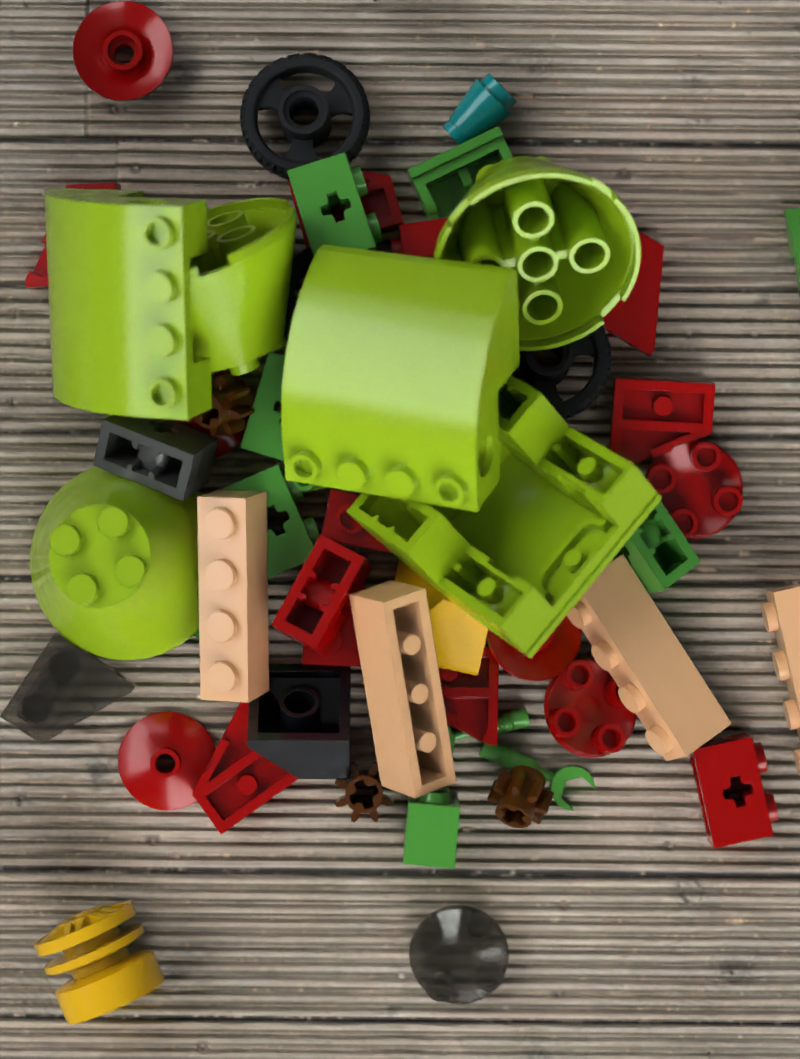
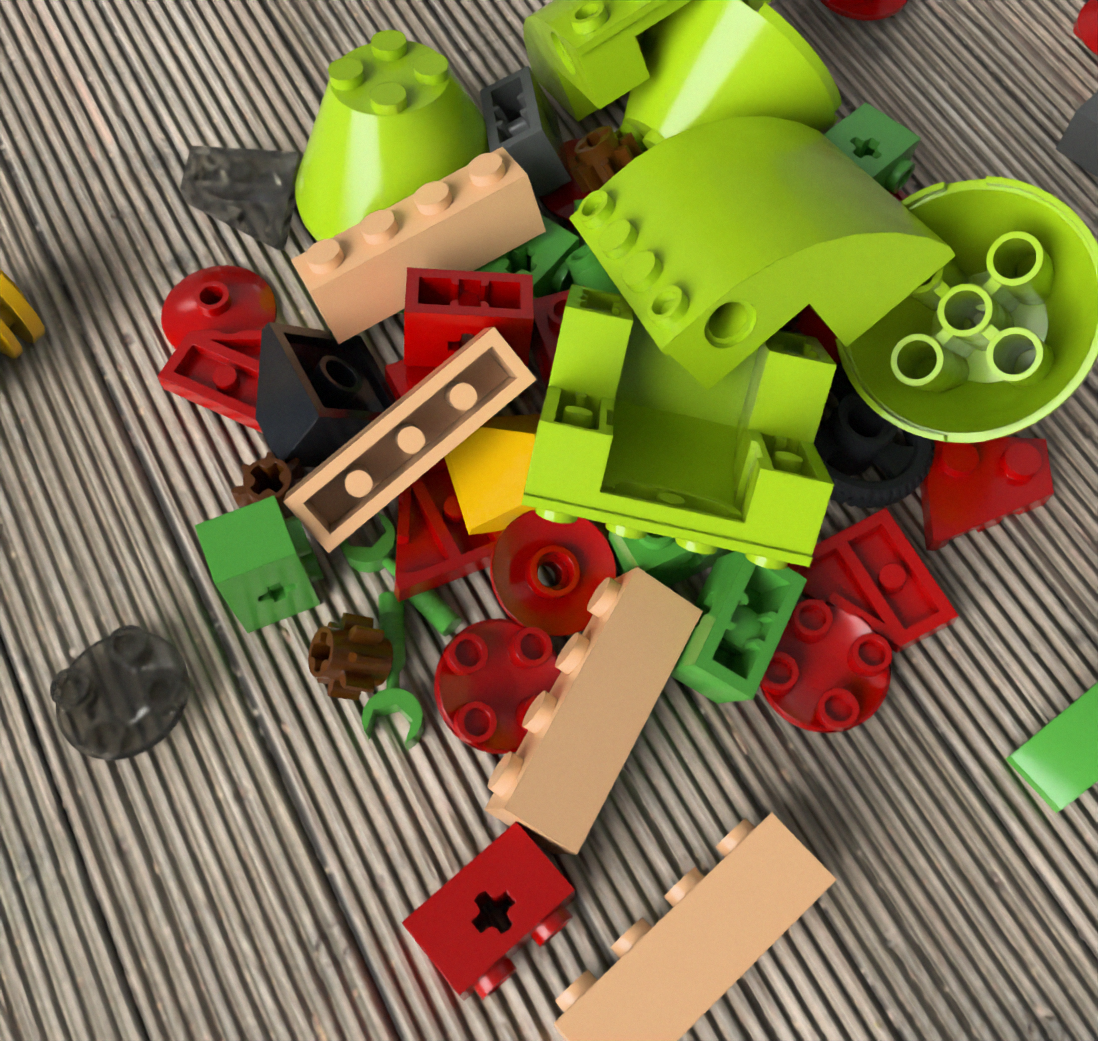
camera: 65 degrees right, 25 degrees down
(267, 93) = (926, 110): black wheel -> none

